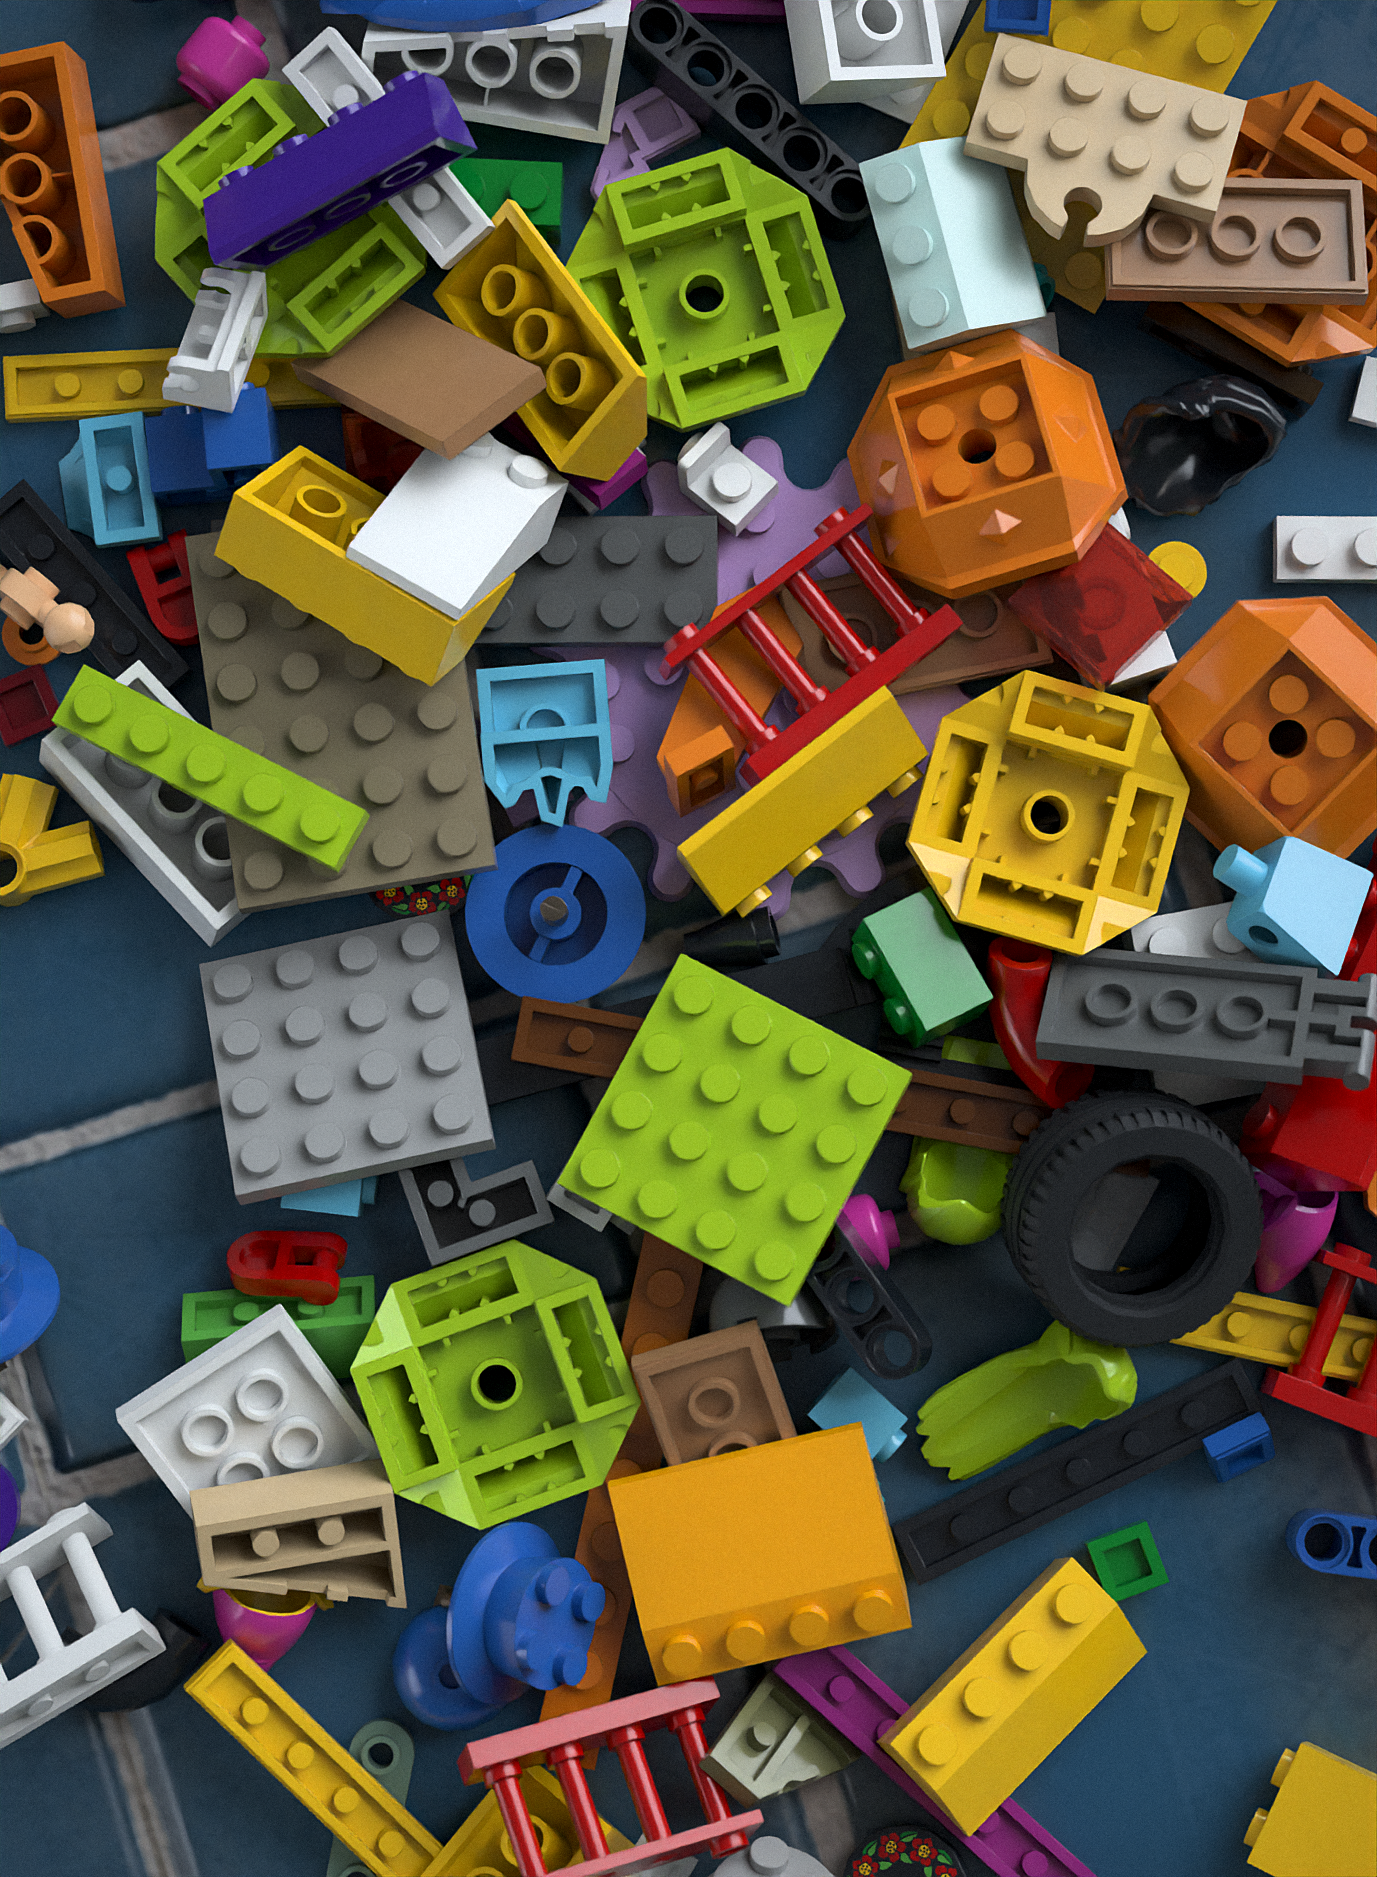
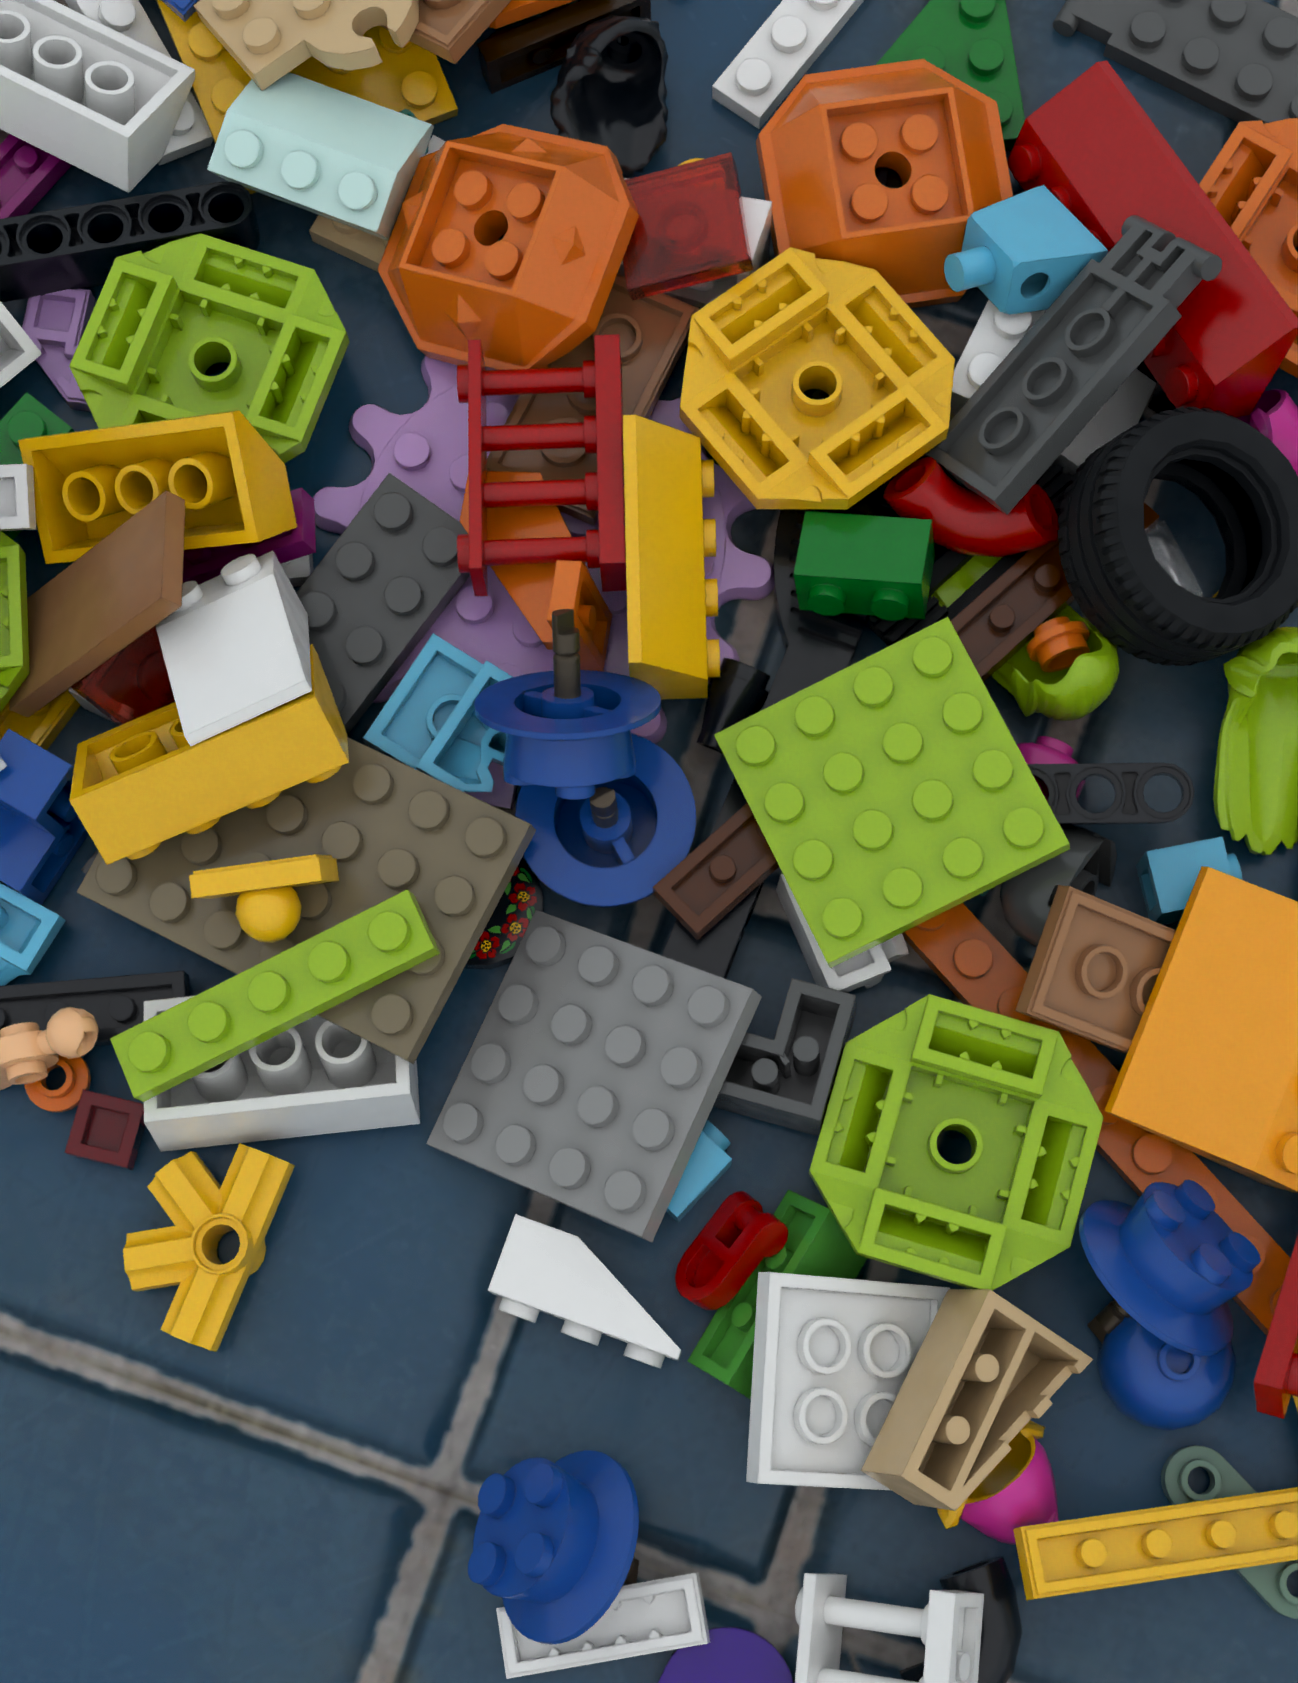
camera: 40 degrees left, 10 degrees down
(171, 602) = (123, 945): red plate -> none
(173, 1159) = (563, 1278): none -> white slope
(285, 697) = (266, 900): none -> yellow tile
(596, 833) = (569, 722): none -> blue piece
(723, 479) = (365, 452): white bracket -> none
(973, 1173) = (1058, 643): none -> orange plate

